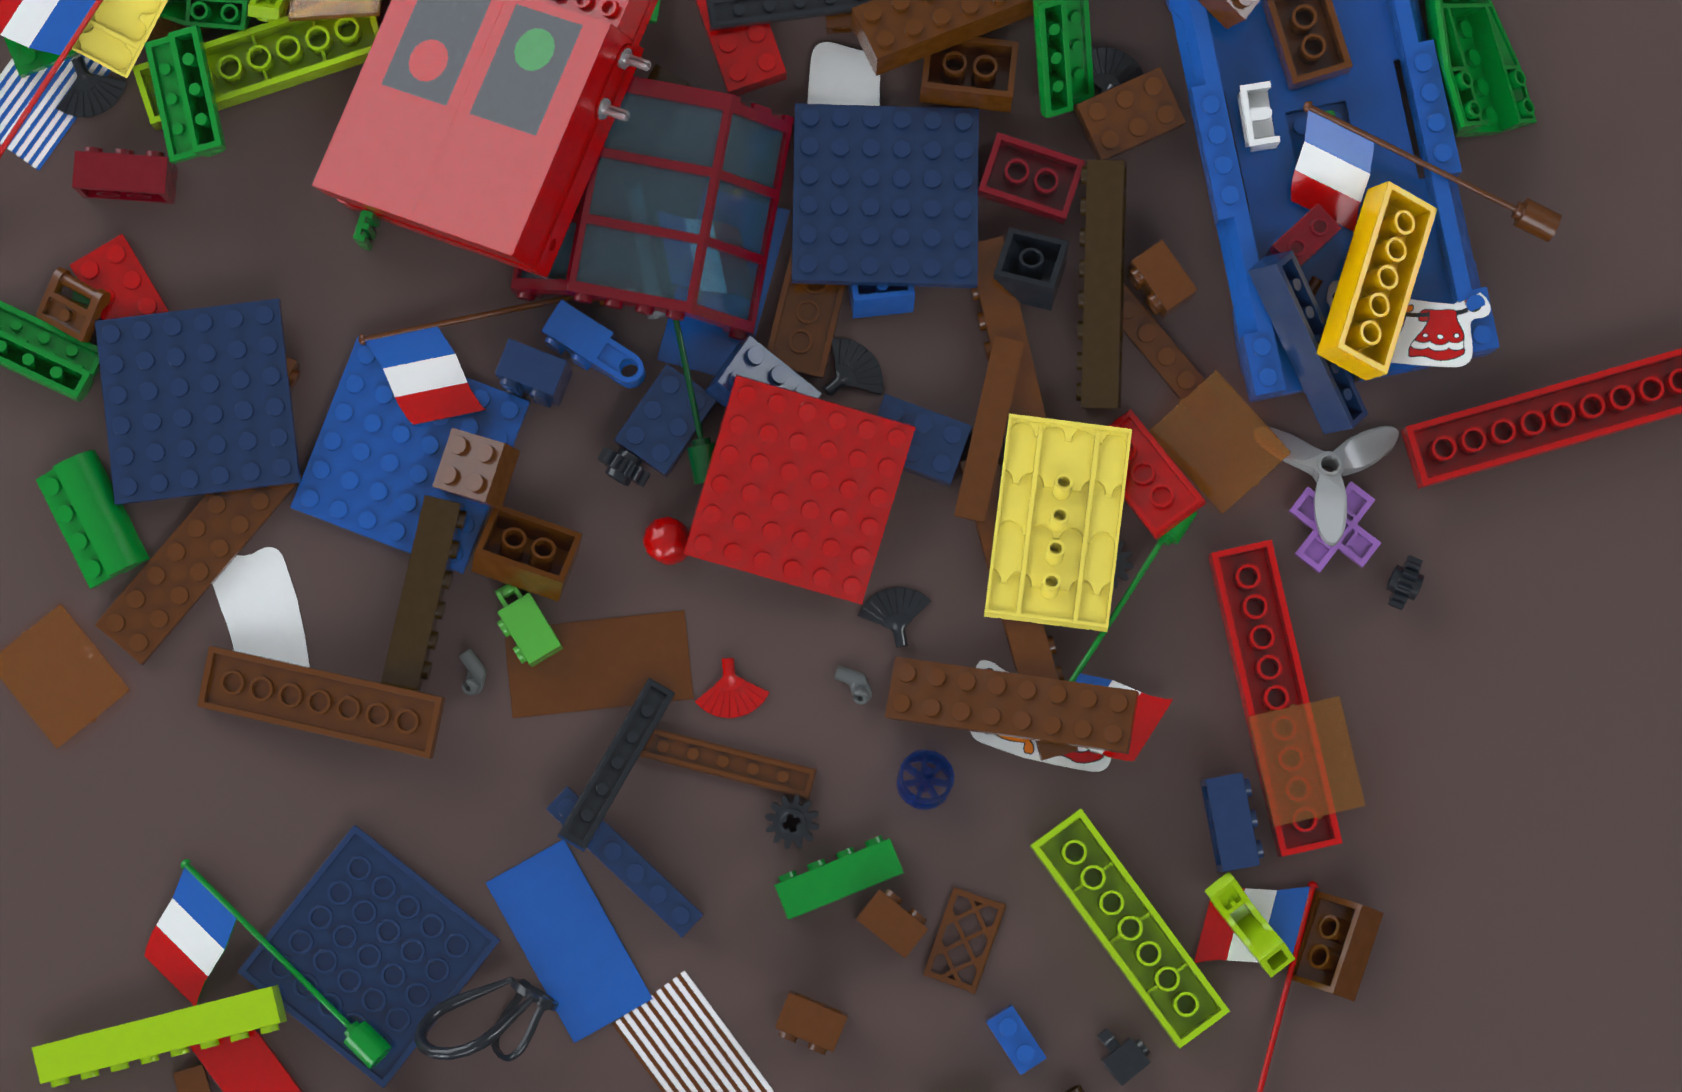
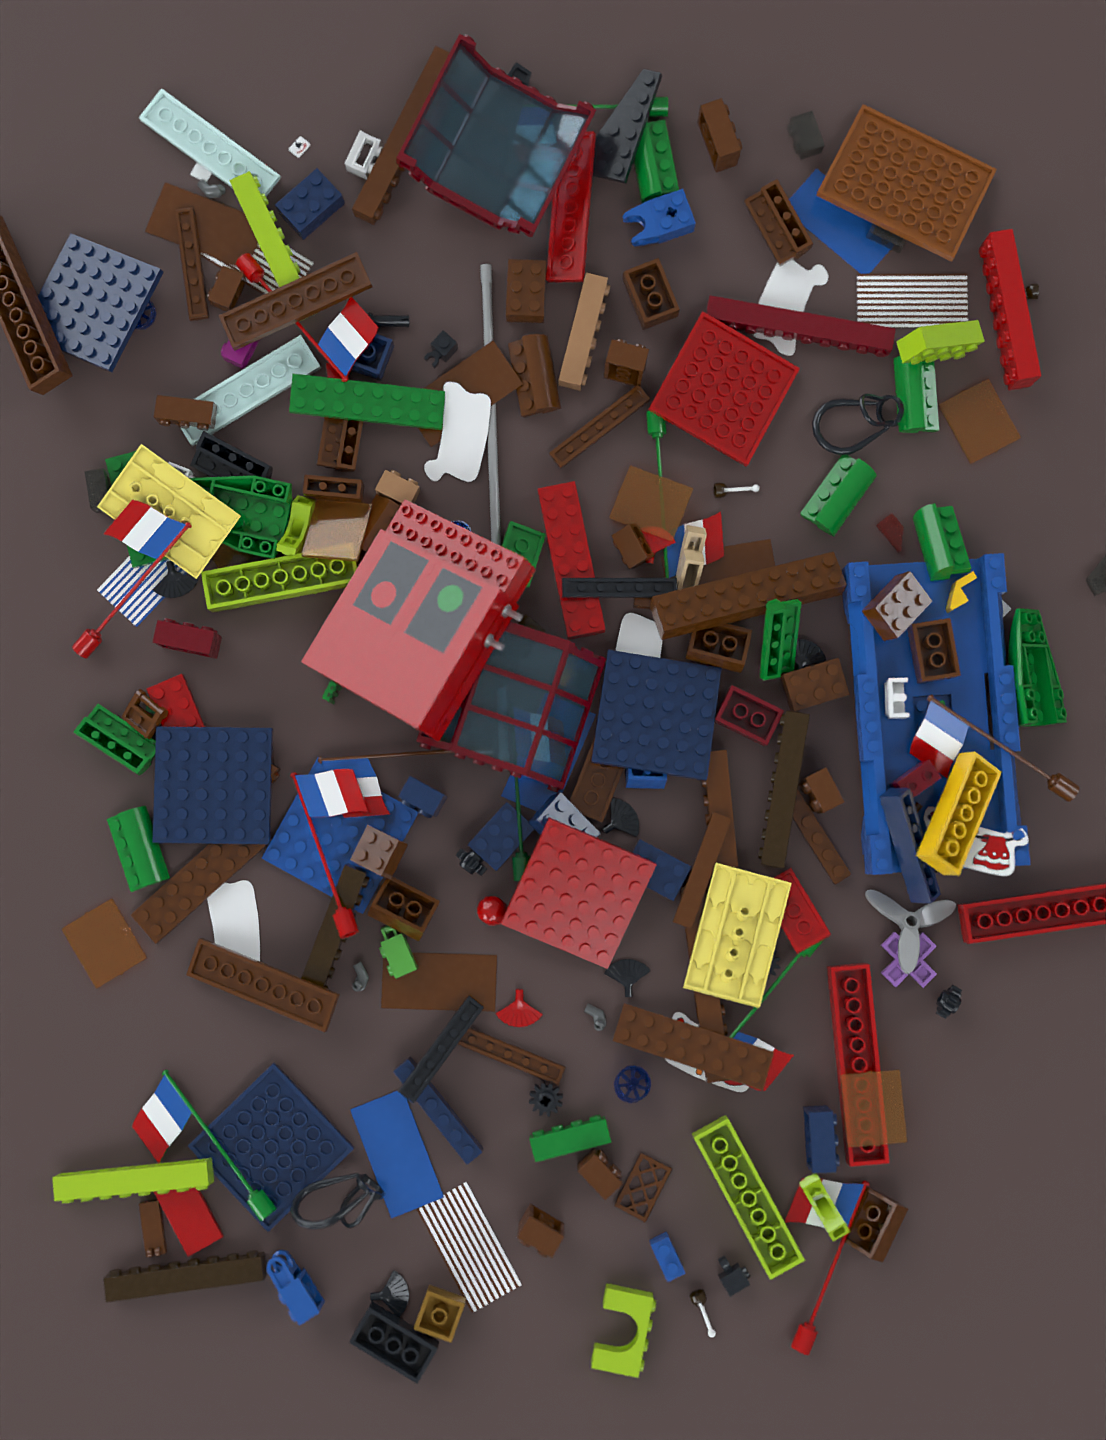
camera: 10 degrees right, 0 degrees up
(185, 95) = (230, 594): green brick -> none
(382, 394) = (328, 796): none -> flag
(591, 345) = (460, 783): blue brick -> none
(1032, 267) = (741, 772): black slope -> none
(1219, 441) = (844, 896): clear orange piece -> none

